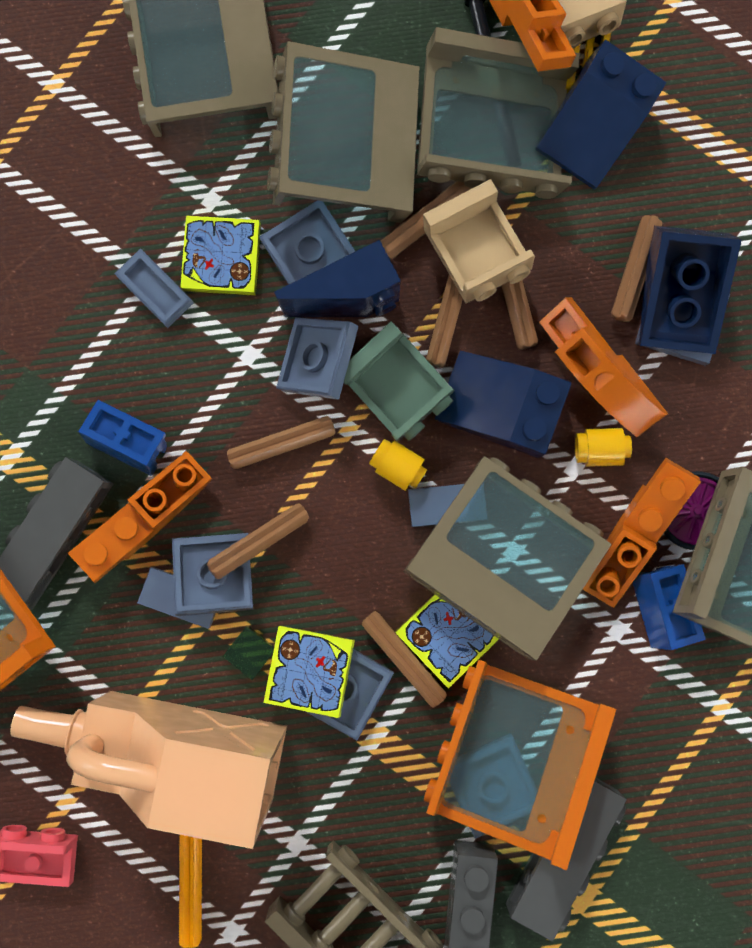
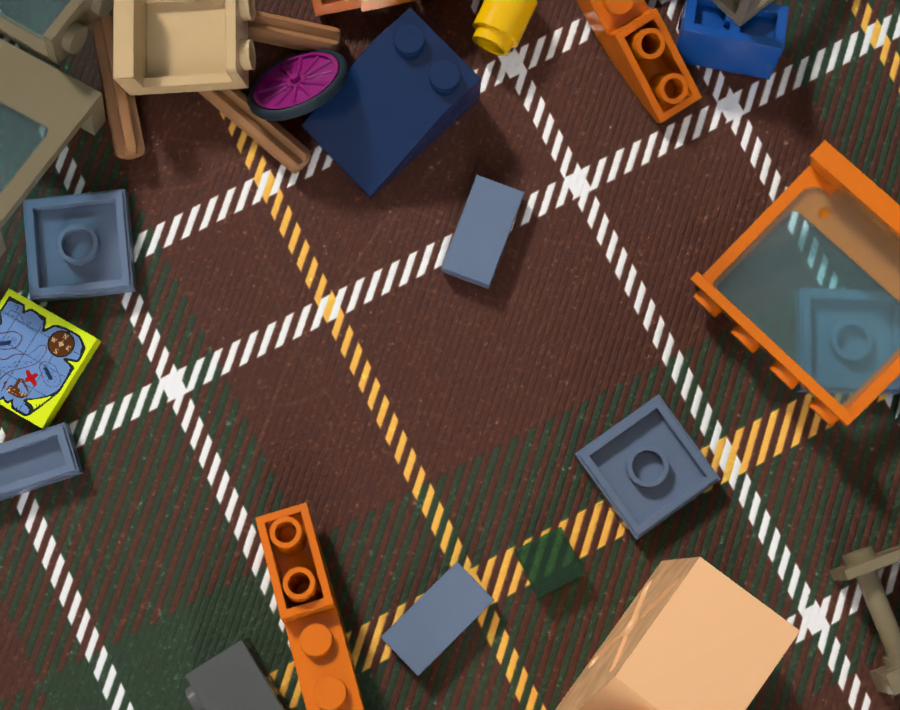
camera: 70 degrees left, 5 degrees down
(123, 437) = (197, 591): blue hinge -> none
(195, 586) = (428, 560): sand blue tile -> none
(257, 541) = (415, 481): medium nougat axle -> none
(281, 442) = (304, 397): medium nougat axle -> none
(309, 671) = (608, 495): tile -> none
(317, 357) = (222, 296): sand blue tile -> none
(346, 288) = (155, 217): dark blue slope -> none
(397, 383) = (304, 217): sand green panel -> none
(398, 464) = (405, 263): yellow brick -> none
(404, 659) = (646, 374): medium nougat axle -> none
(445, 639) = (641, 305): tile -> none
(483, 334) = (298, 84): none -> magenta wheel
(509, 558) = (585, 186): panel -> none

